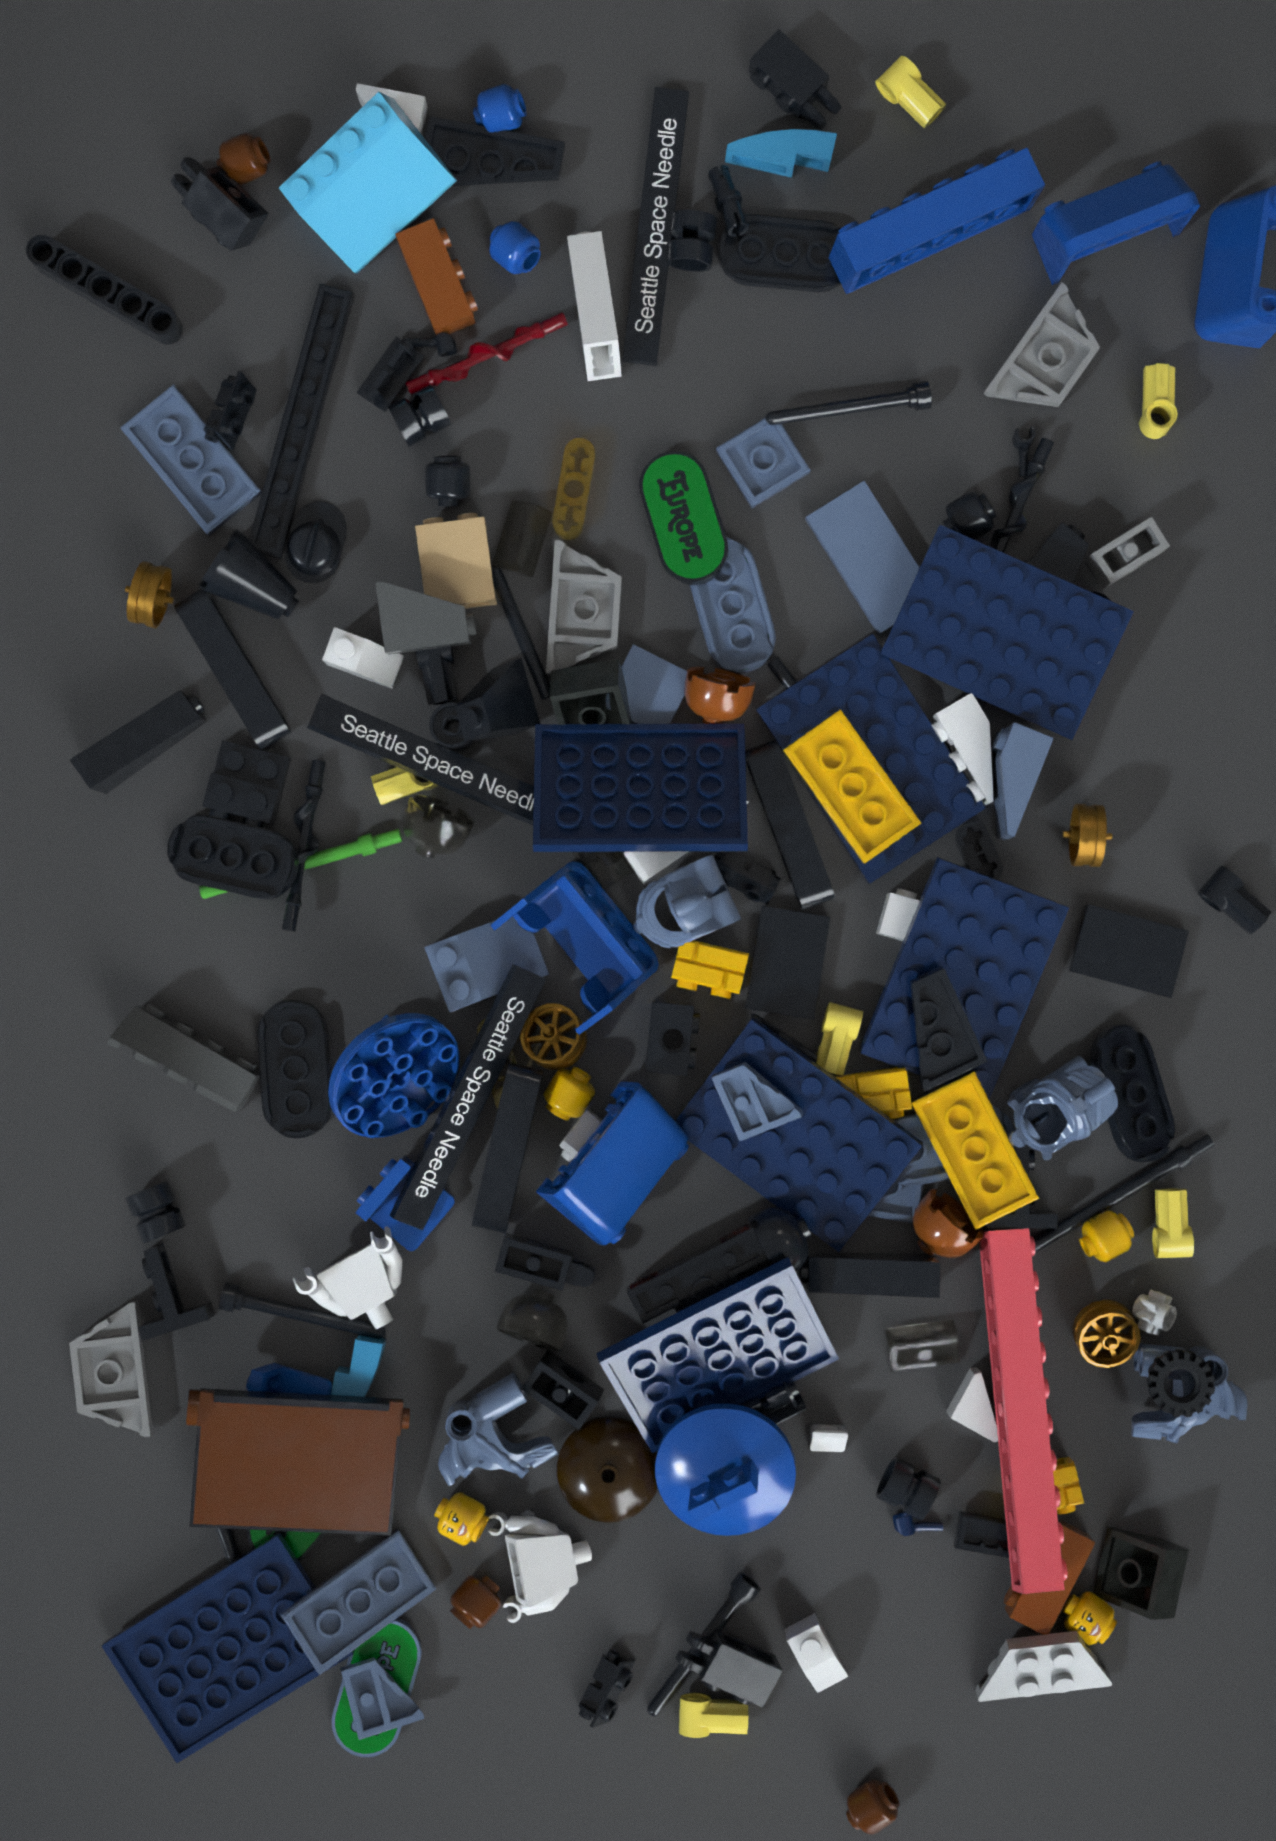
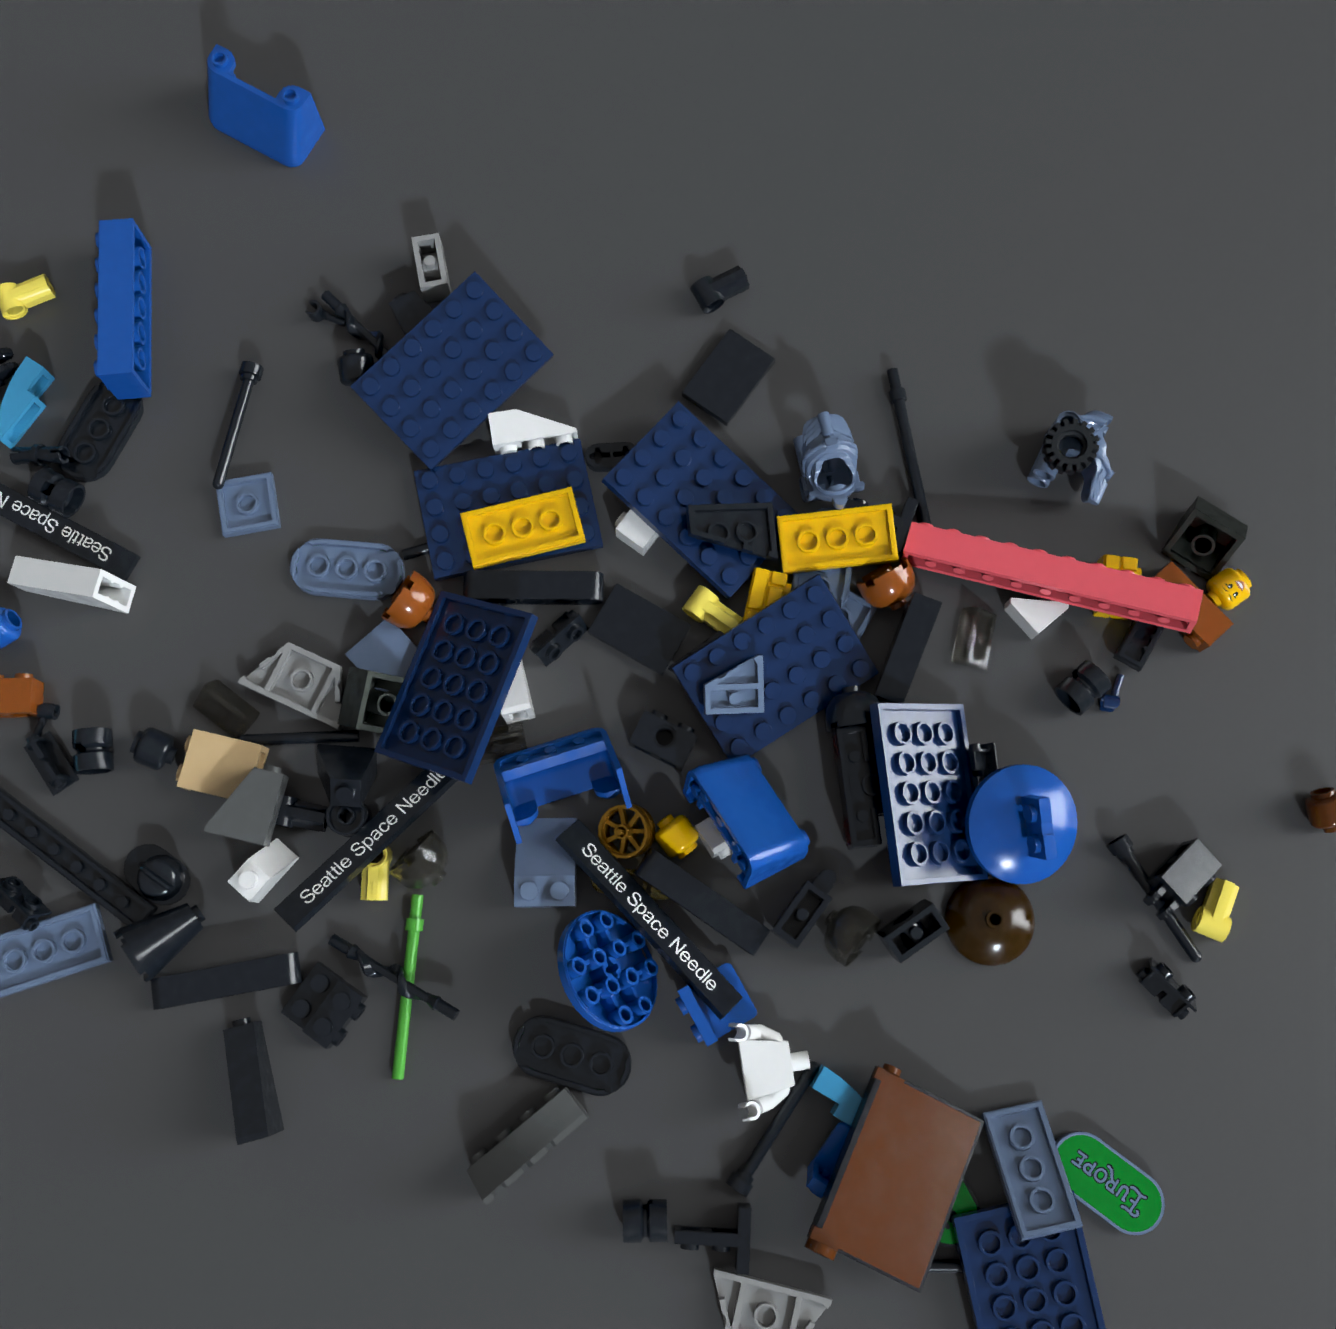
camera: 75 degrees left, 10 degrees down
(149, 594) = (135, 1026): pearl gold wheel -> none
(233, 857) = (378, 1039): black tile -> none
(377, 1699) = (1118, 1185): sand blue wing -> none
(461, 1518) = (990, 1055): yellow head -> none
(475, 1601) = (1062, 1070): reddish brown head -> none
(482, 351) = (66, 683): dark red piece -> none
(482, 1442) = (931, 1013): sand blue helmet -> none
(540, 1563) = (1047, 1003): white torso -> none
(569, 462) = (217, 651): clear yellow beam -> none
(683, 517) = (264, 578): green tile -> none
(695, 899) = (559, 671): sand blue helmet -> none
(711, 967) = (619, 688): yellow brick -> none
(815, 1653) = (1189, 809): white slope -> none
(828, 1437) = (1022, 736): white slope -> none
(866, 553) = (352, 455): sand blue tile -> none
(1015, 770) = (556, 399): sand blue slope -> none
(1041, 1667) = (1255, 638): wing -> none
(1047, 356) = (263, 272): light grey wing -> none
(1087, 835) = (629, 370): pearl gold wheel -> none
(1100, 1316) = (999, 496): pearl gold wheel -> none
(1106, 1236) = (937, 469): yellow head -> none
(1113, 216) = (176, 184): blue windscreen -> none
(1143, 1115) = (861, 409): black tile -> none
(1154, 1312) = (1008, 455): white gear -> none
(1159, 399) = (330, 208): light yellow piece -> none
(1172, 1234) = (953, 421): light yellow piece -> none

